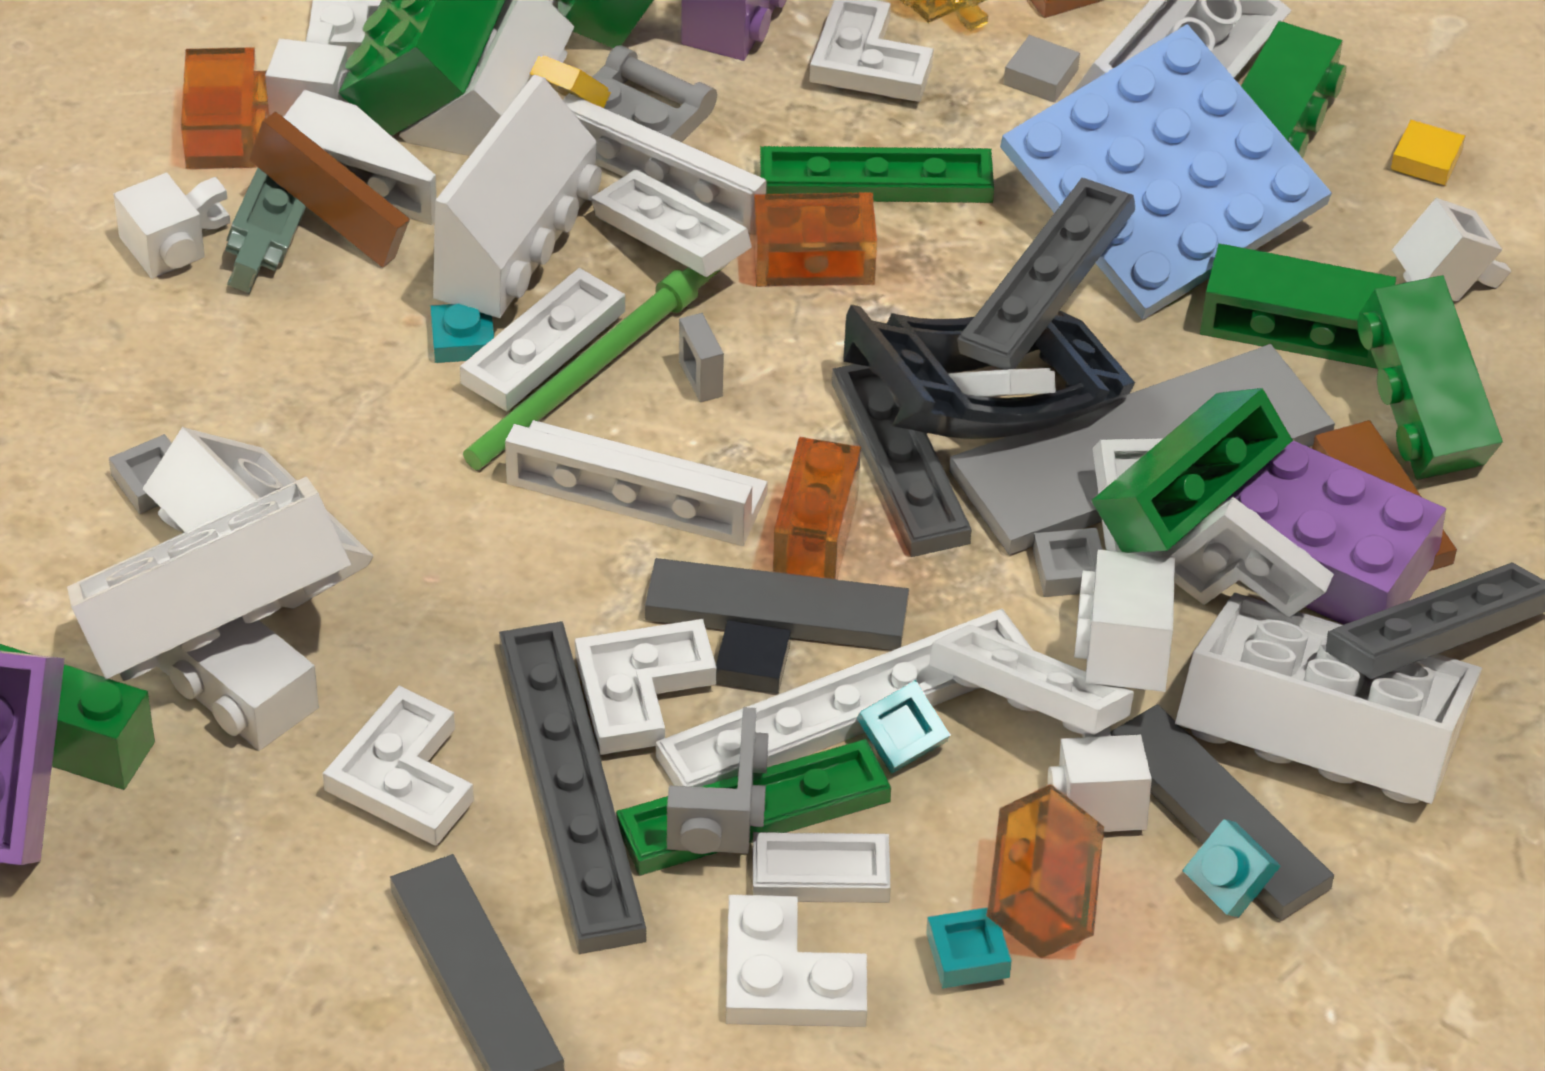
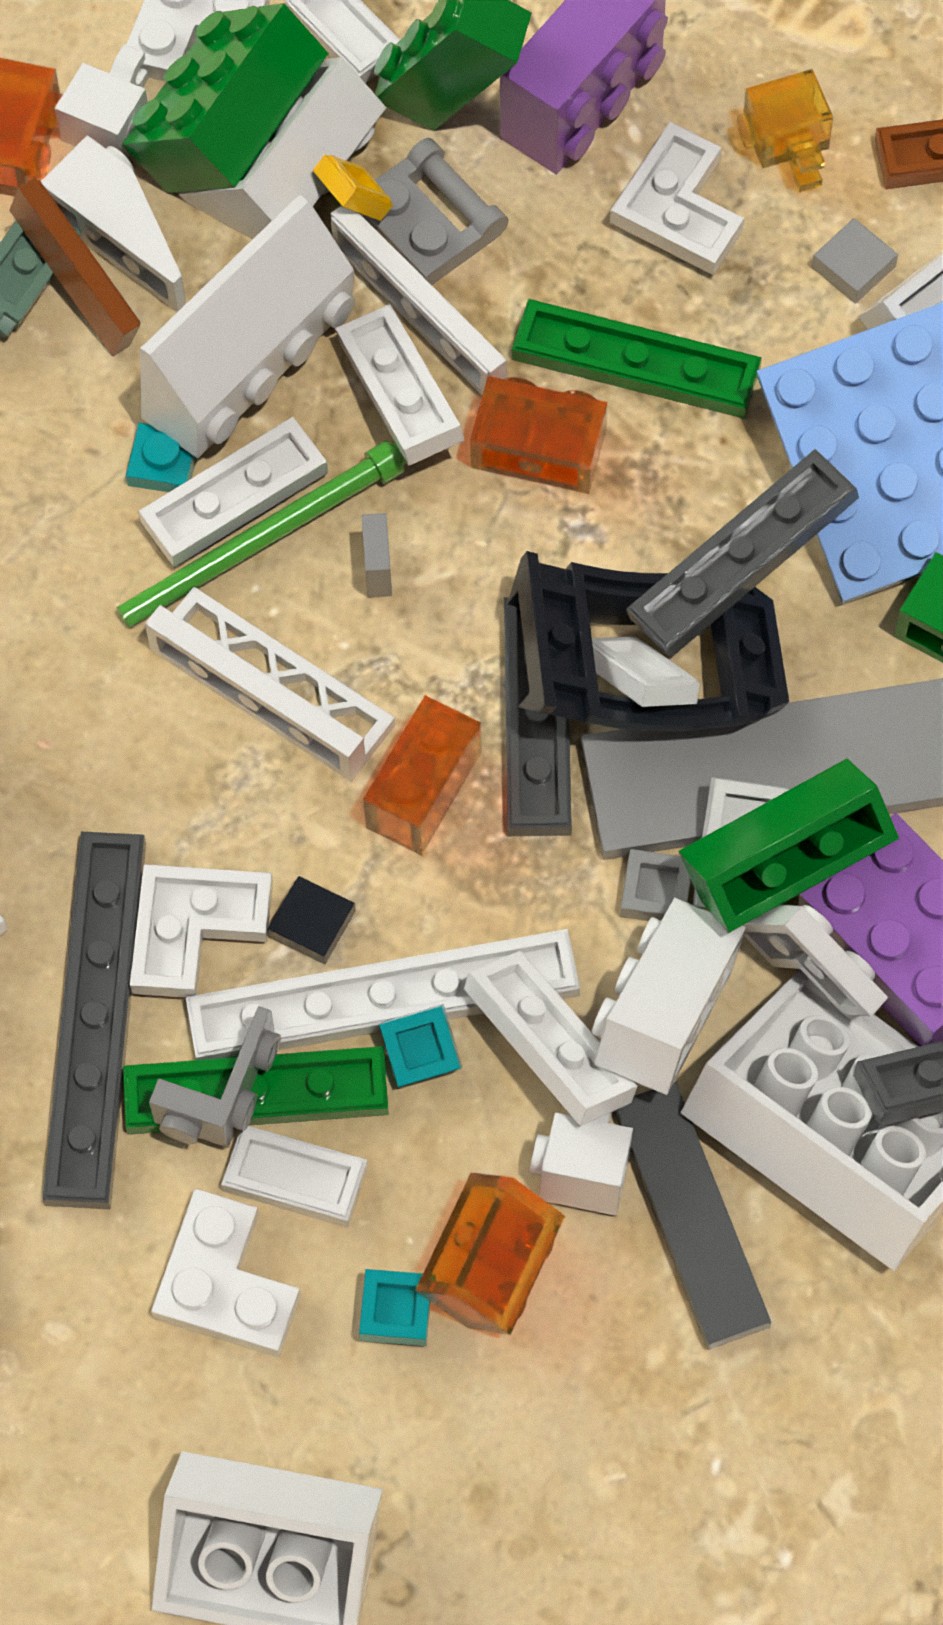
camera: 20 degrees right, 20 degrees up
(804, 604) = (356, 864): dark grey tile -> none
(1231, 868) = (673, 1290): teal plate -> none

